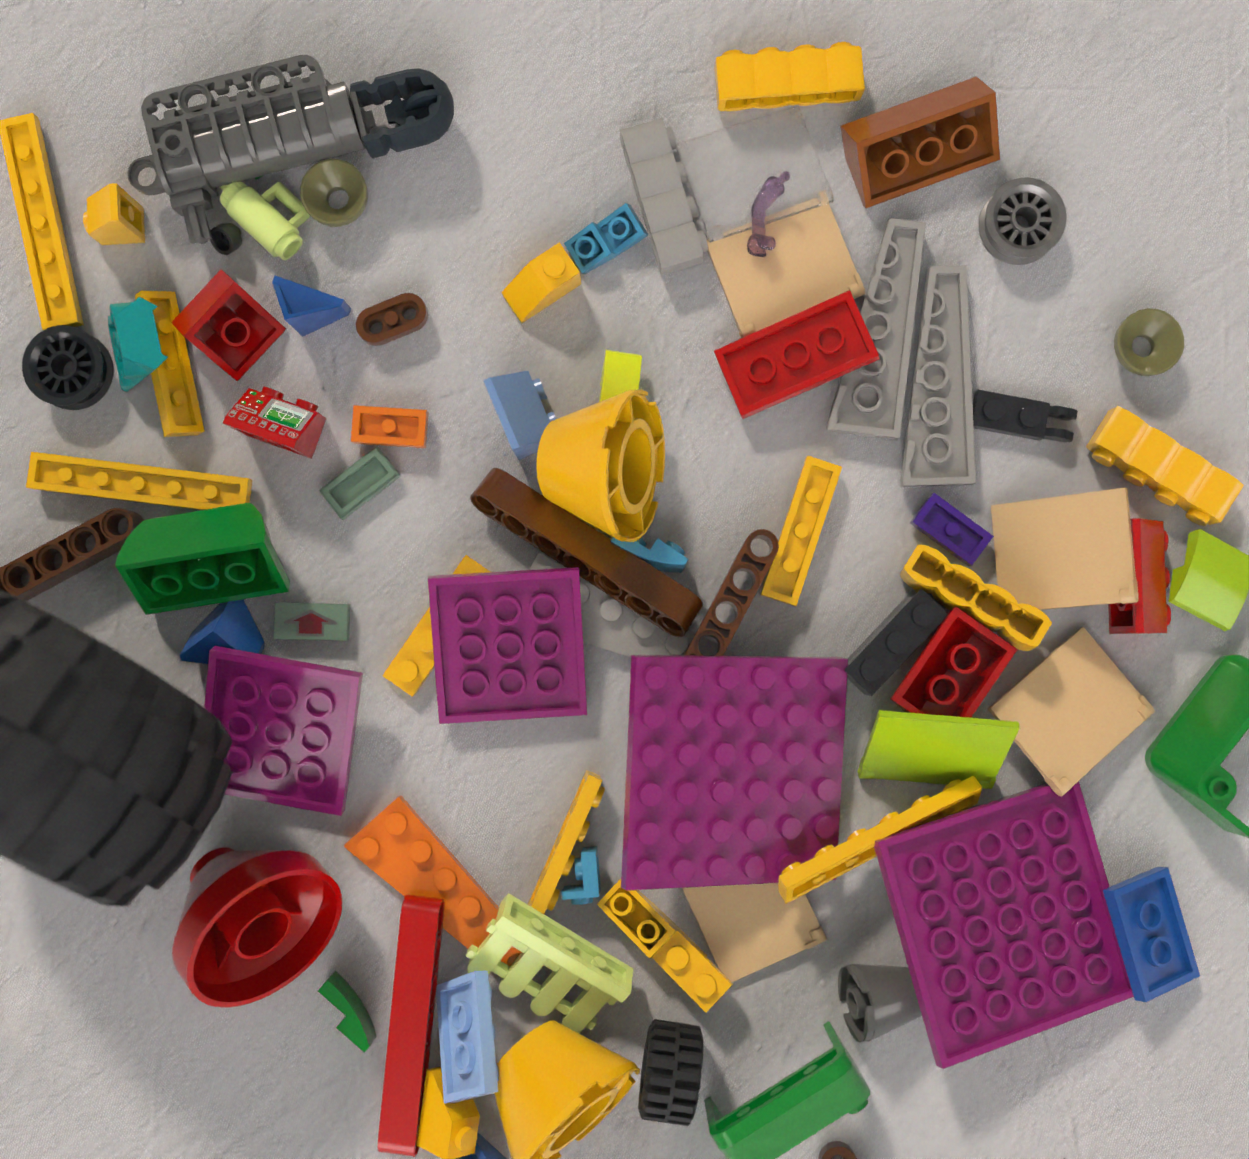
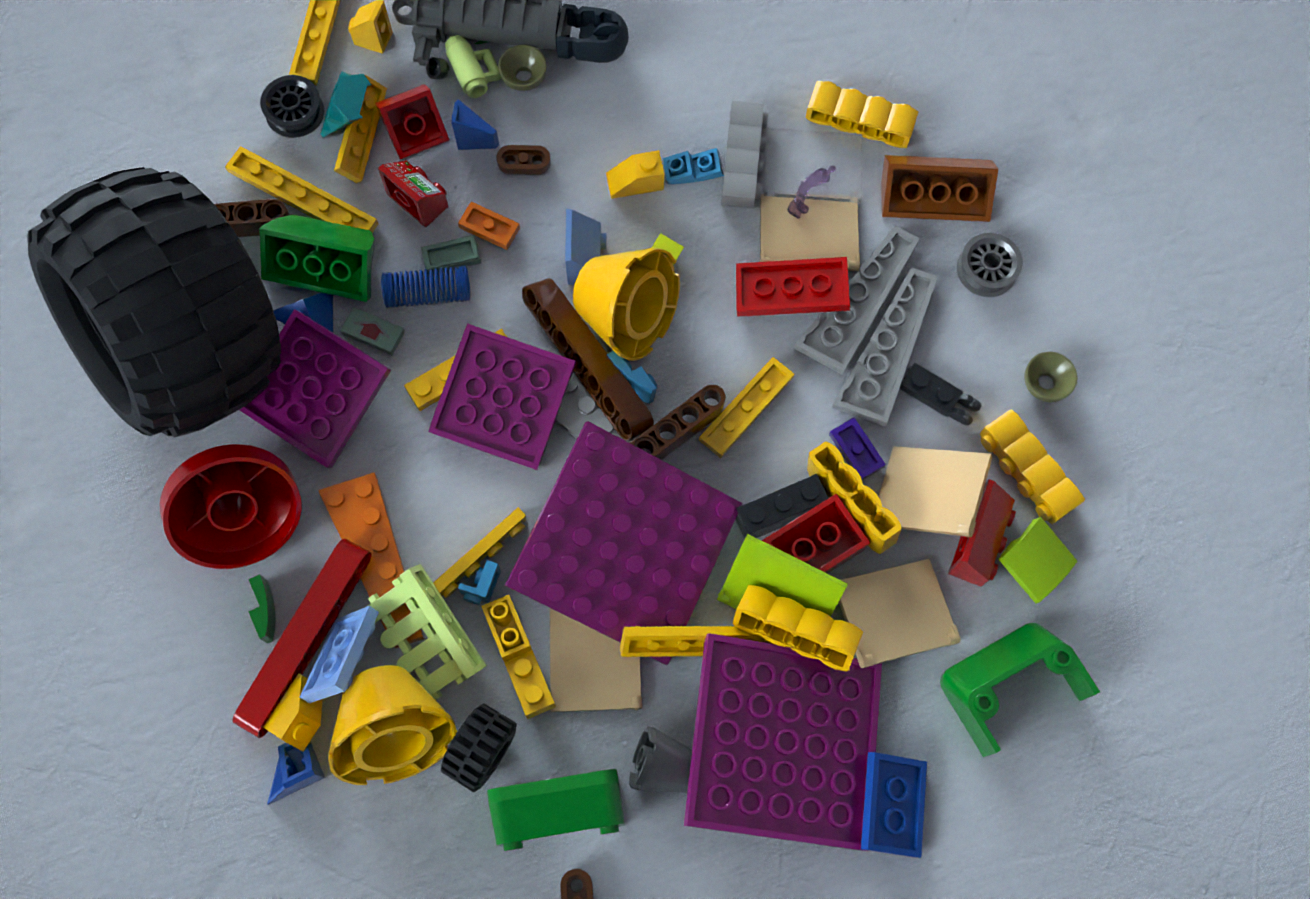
camera: 15 degrees right, 15 degrees down
(347, 536) = (391, 284): none -> blue piece
(976, 788) = (797, 627): none -> yellow brick

